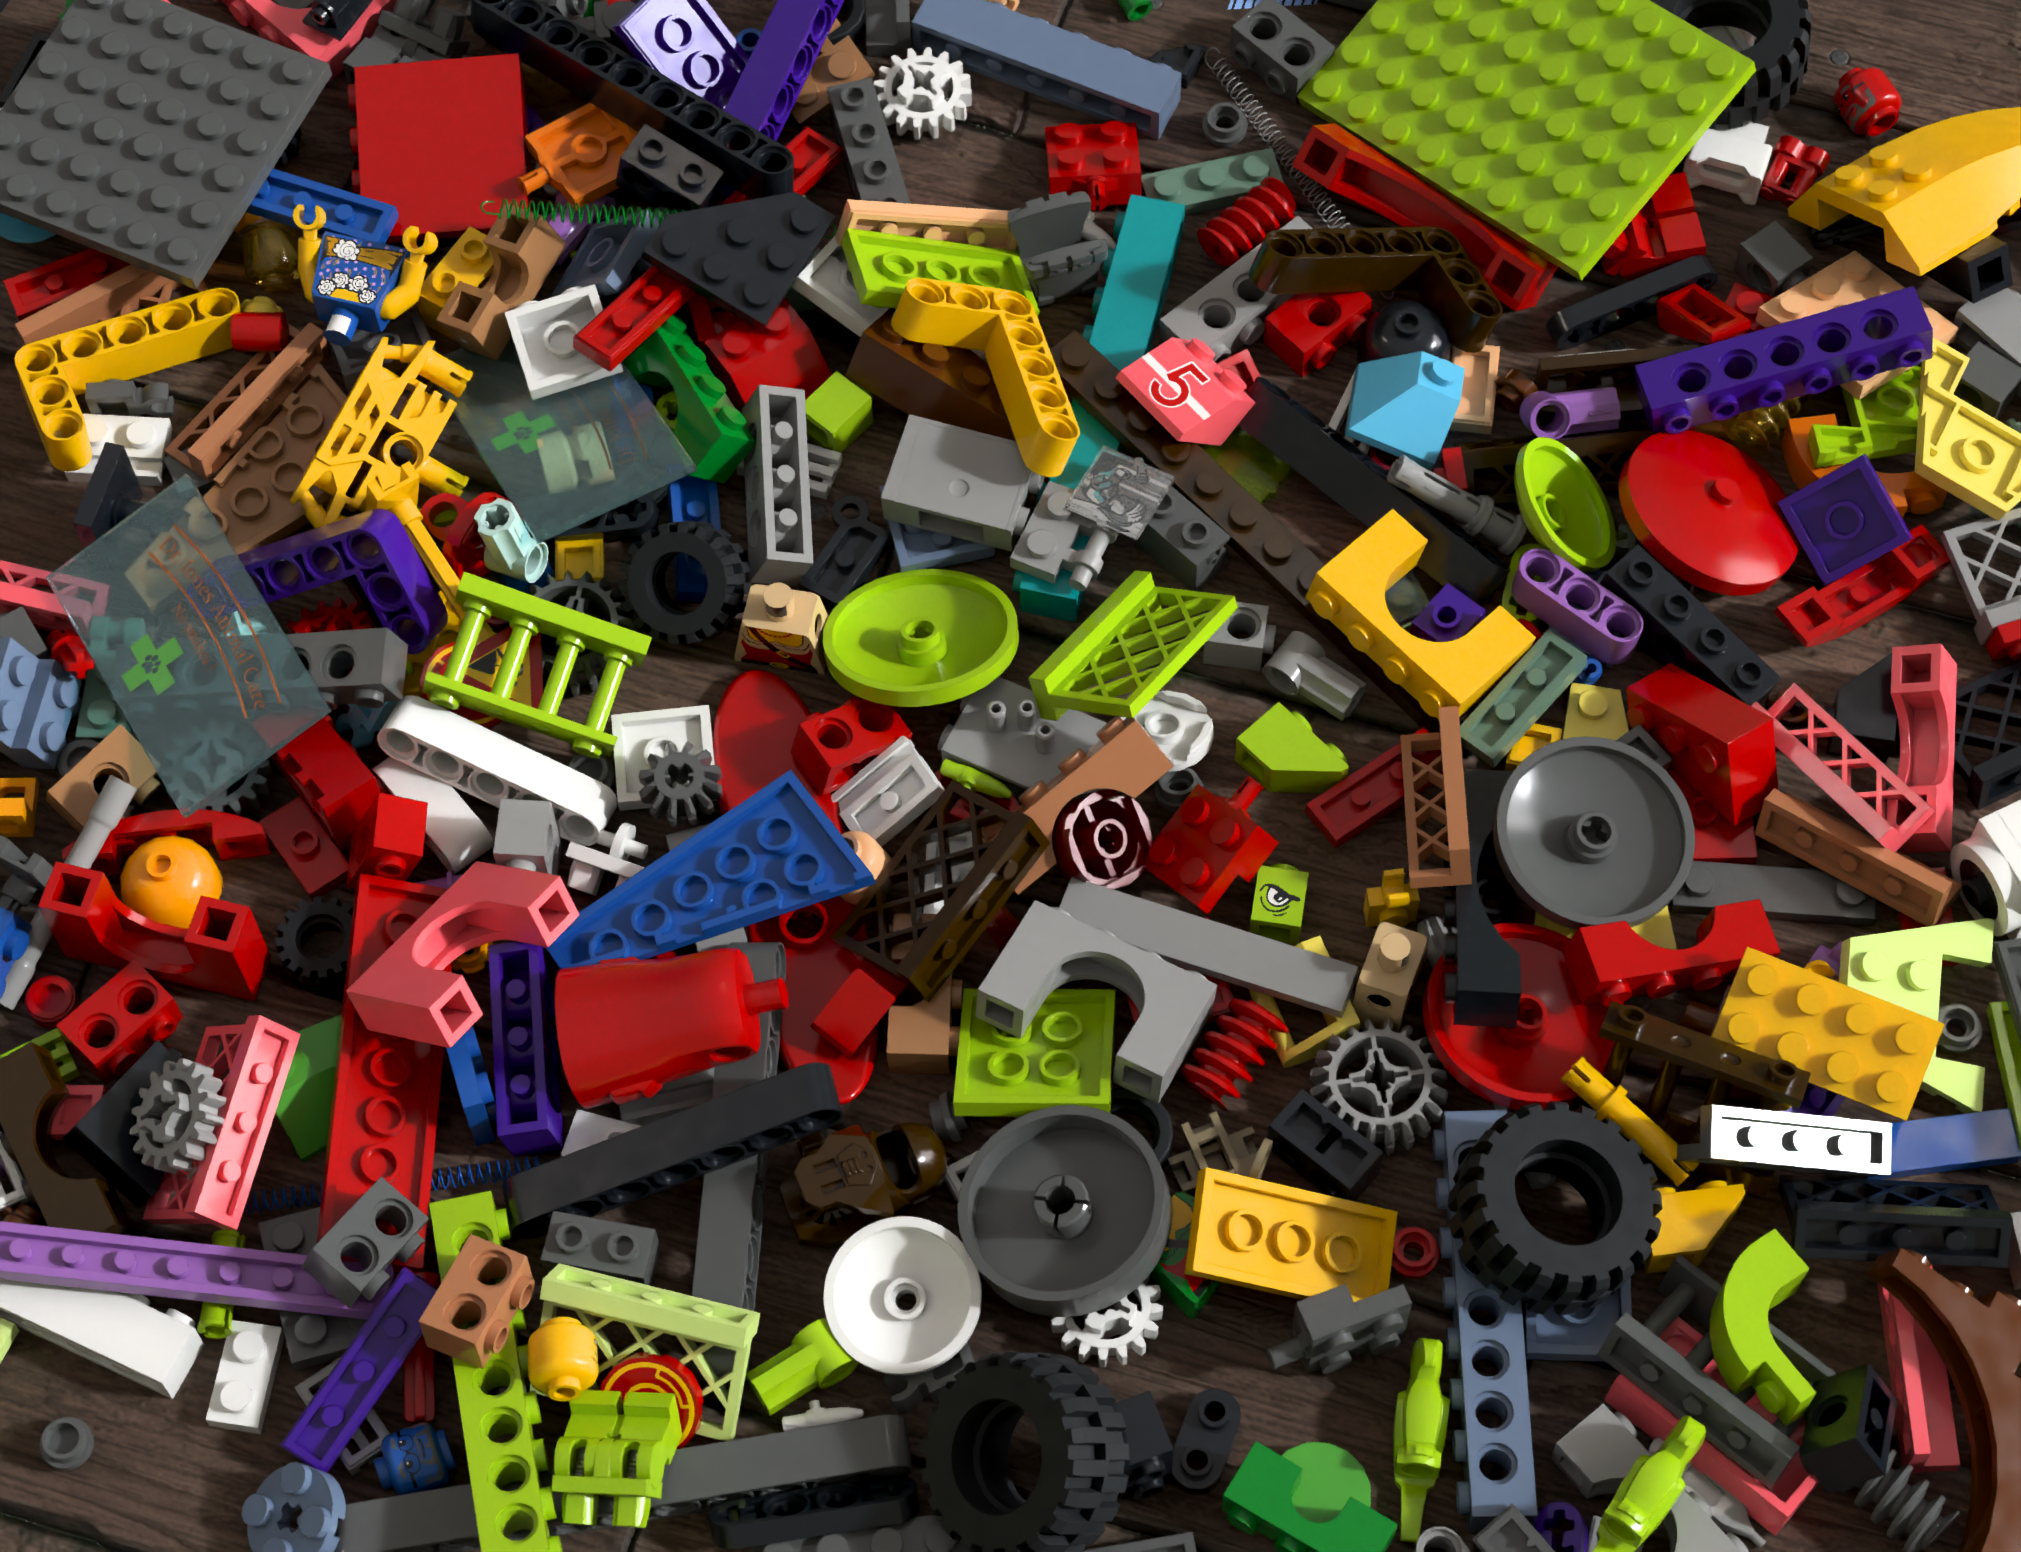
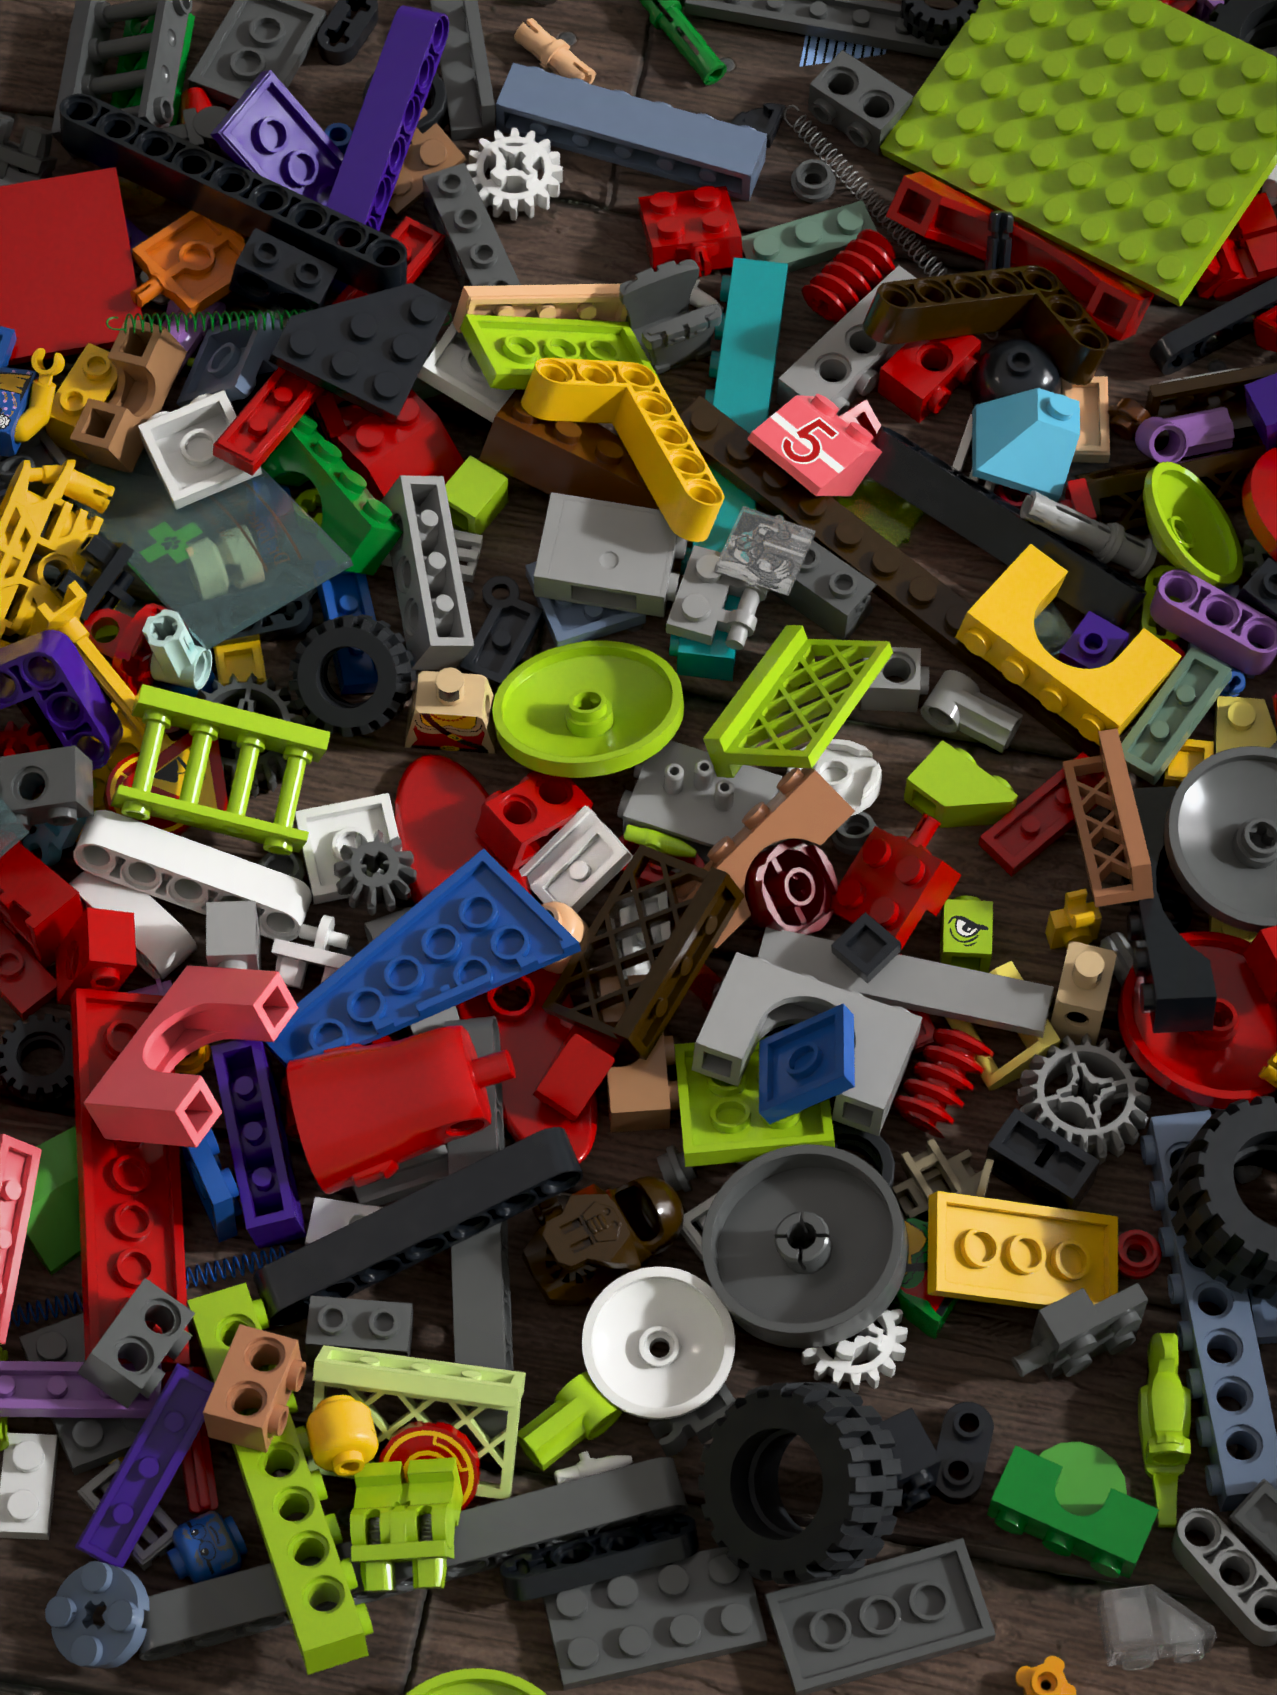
camera: 10 degrees left, 0 degrees up
(455, 445) = (108, 561): none -> black hips
(1090, 1022) = (806, 1064): none -> blue plate
(1169, 908) = (866, 947): none -> black plate
(1403, 201) = (999, 243): none -> black axle

